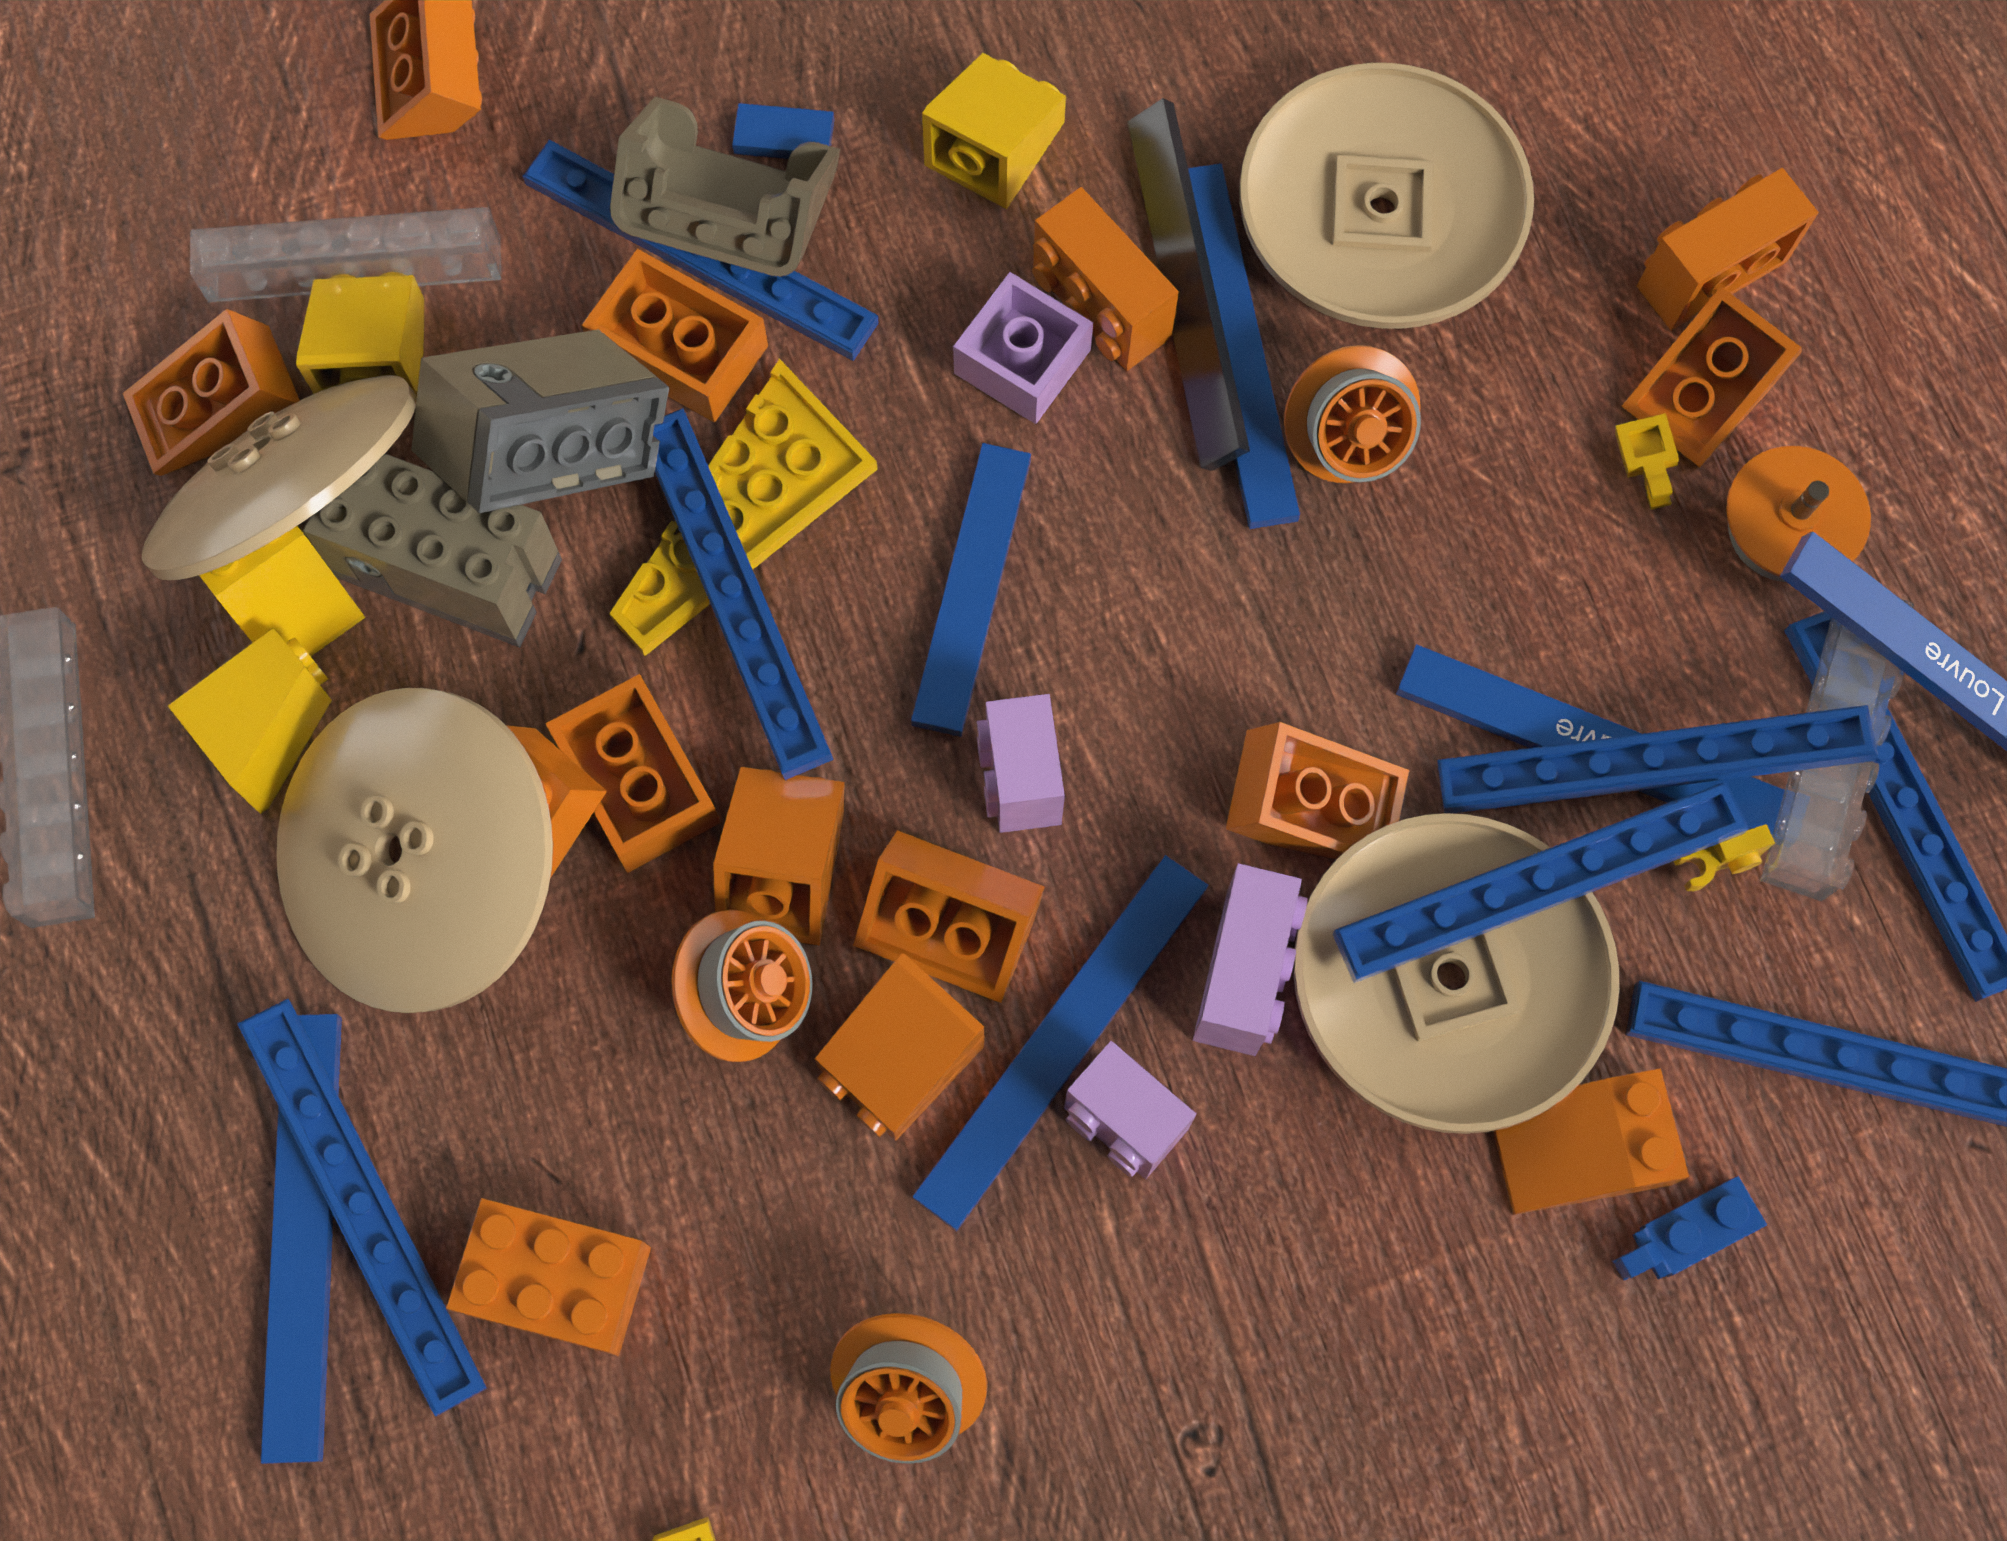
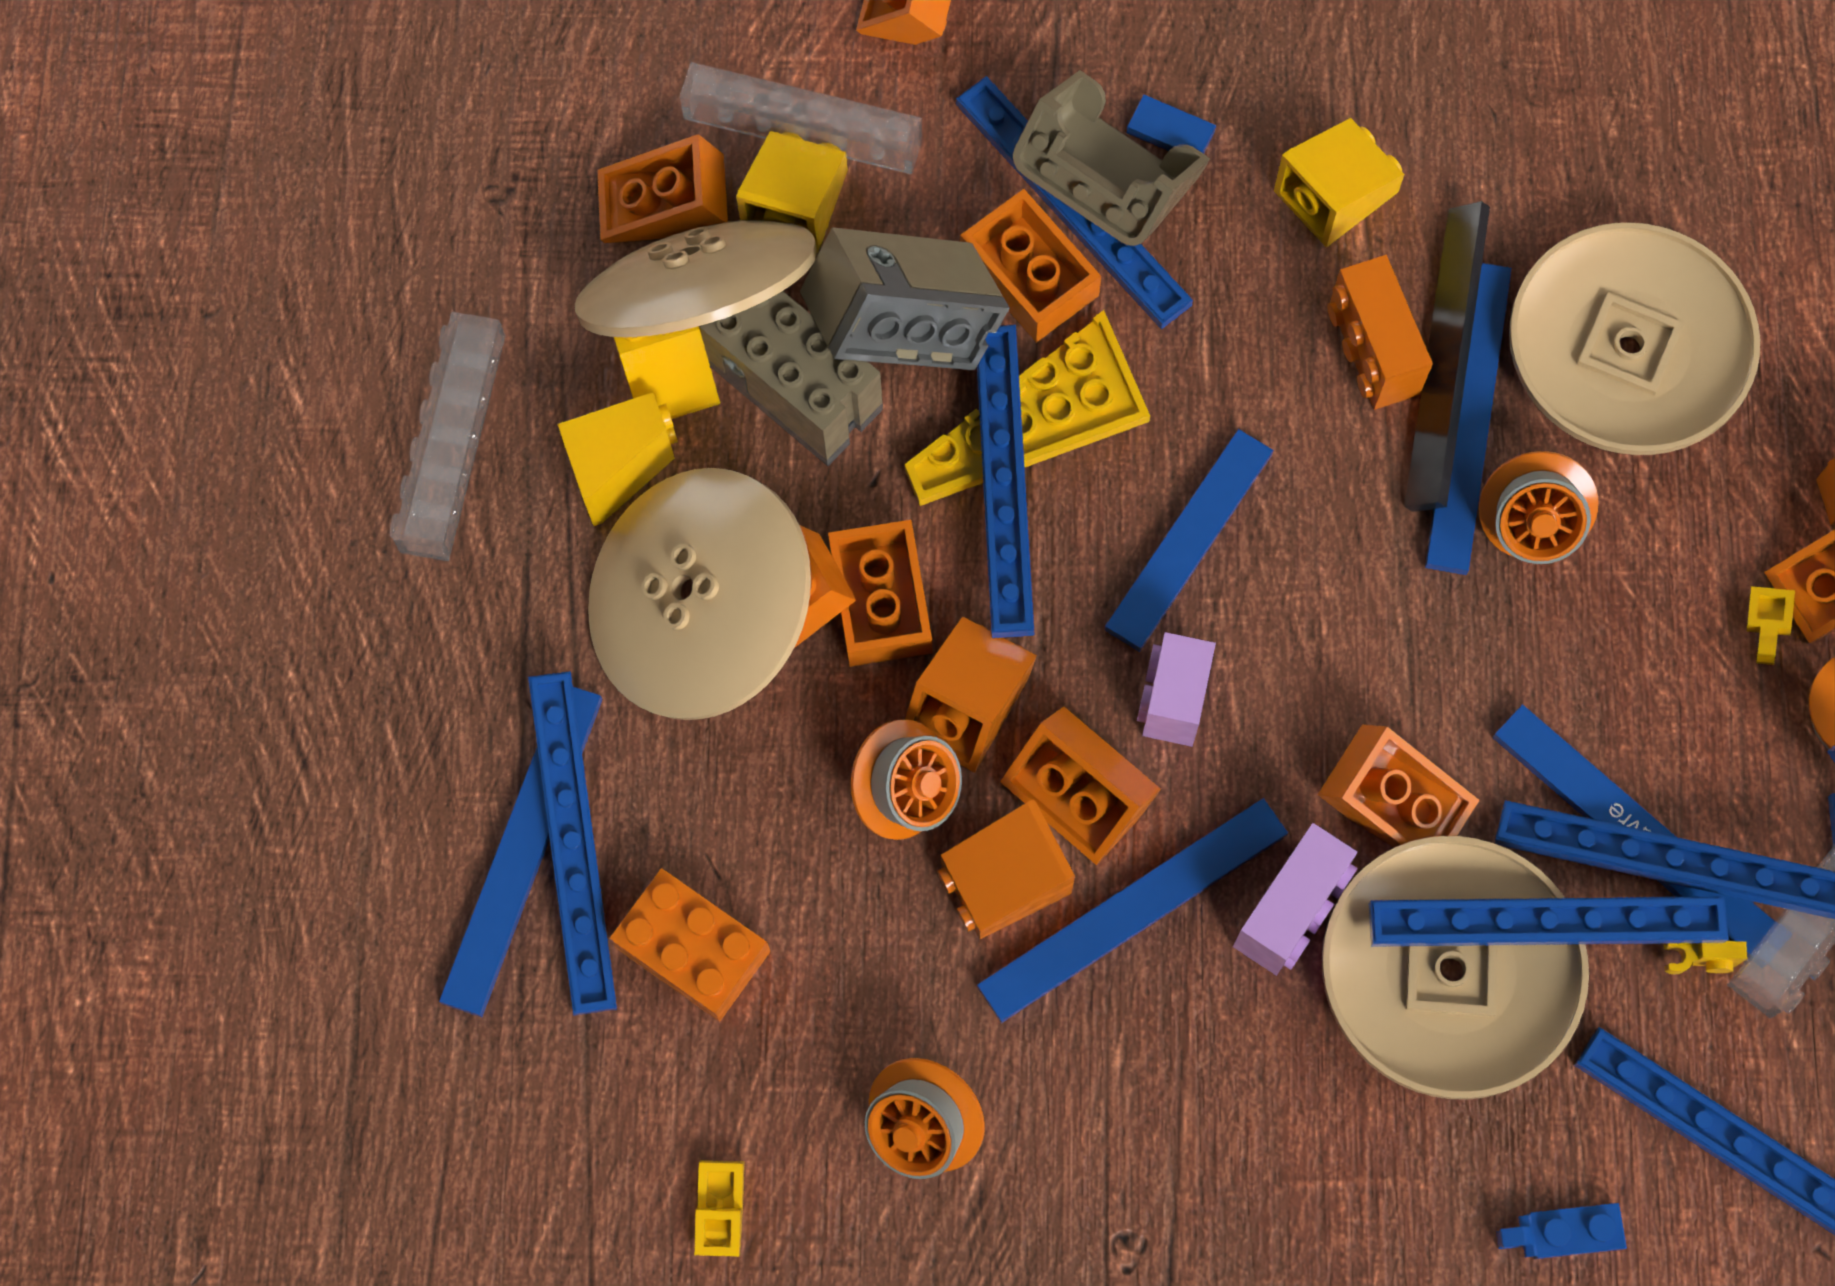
camera: 25 degrees right, 0 degrees up
(1022, 347) = (1296, 365): lavender brick -> none
(1127, 1111) = (1160, 980): lavender brick -> none
(1594, 1145) = (1512, 1137): orange slope -> none

